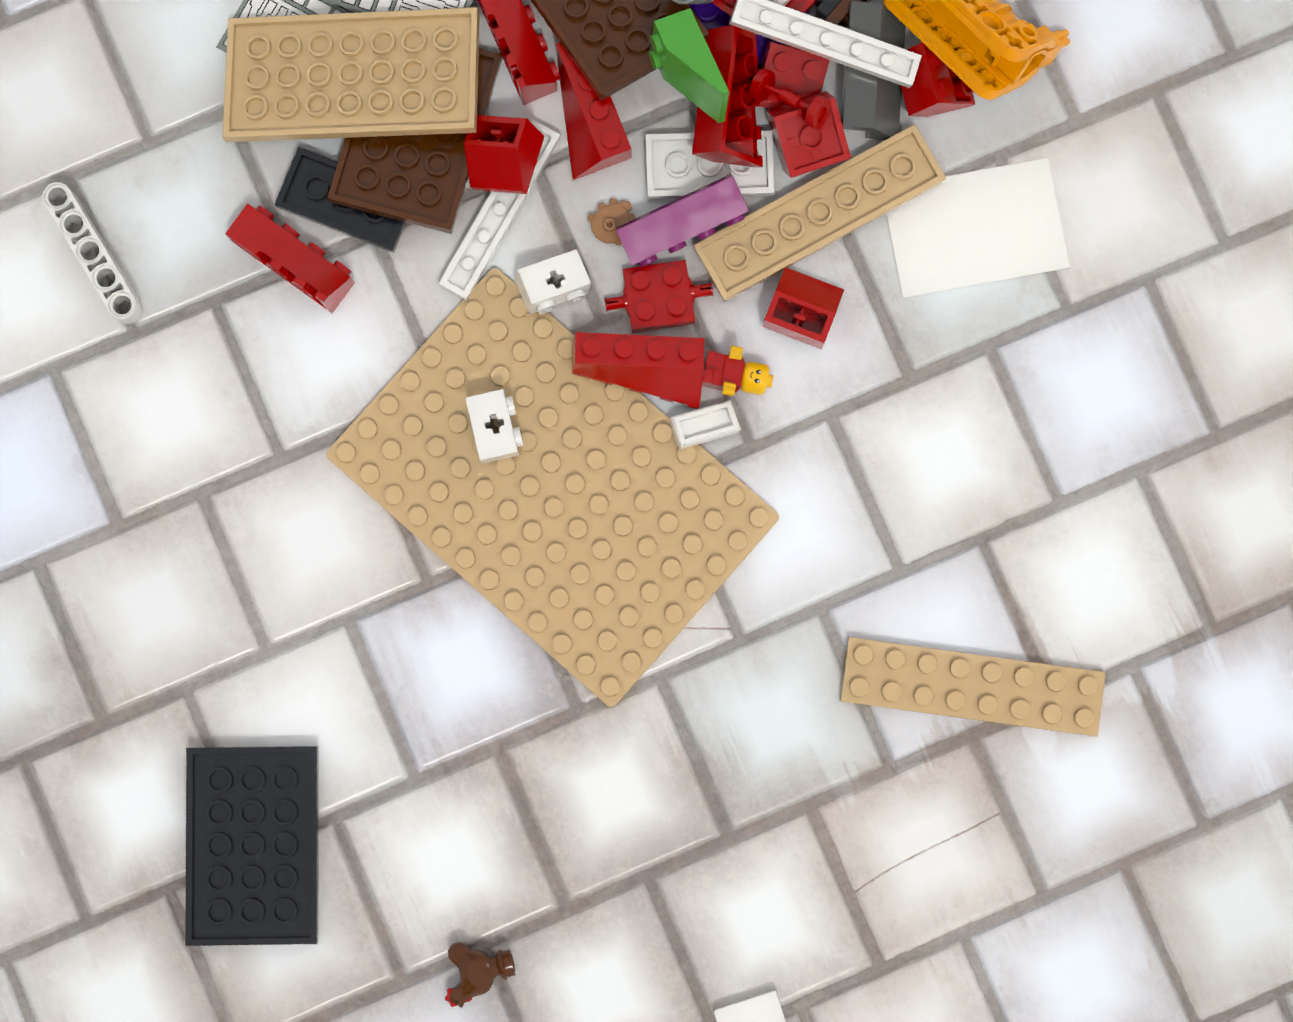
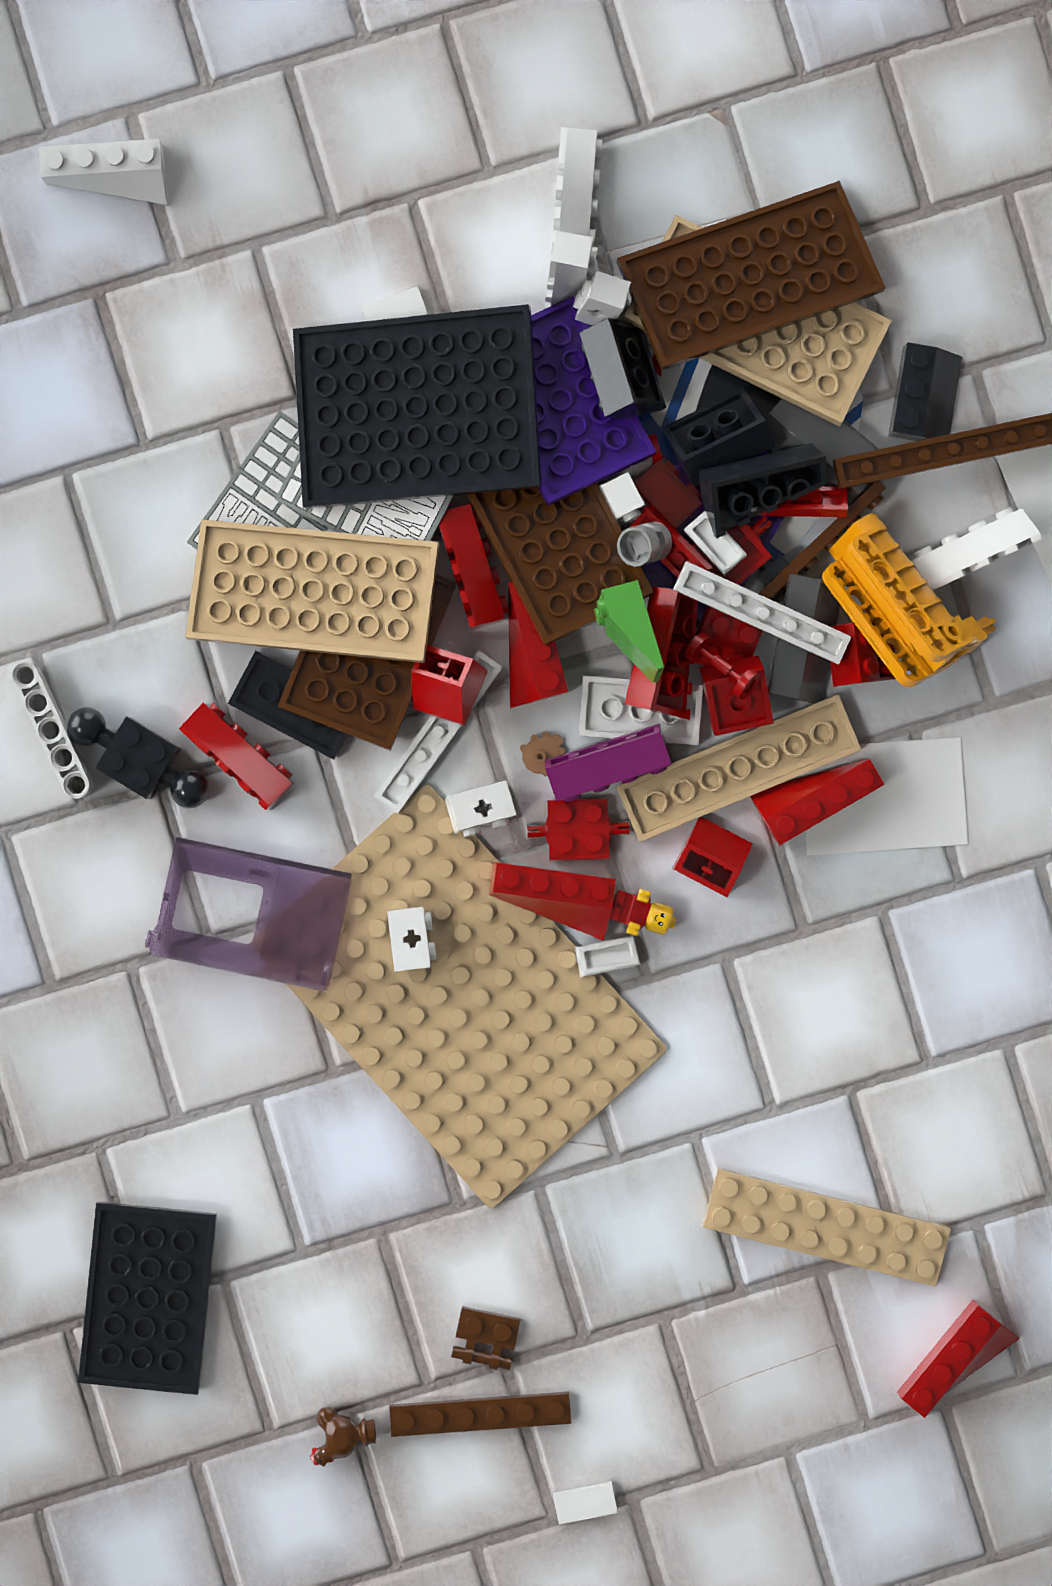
camera: 10 degrees right, 5 degrees up
(185, 270) = (138, 757): none -> black brick
(370, 422) = (294, 926): none -> clear purple piece
(624, 838) = (489, 1329): none -> reddish brown plate
(624, 931) = (480, 1414): none -> reddish brown plate
(895, 240) = (806, 801): none -> red wedge
(1135, 802) = (960, 1352): none -> red wedge

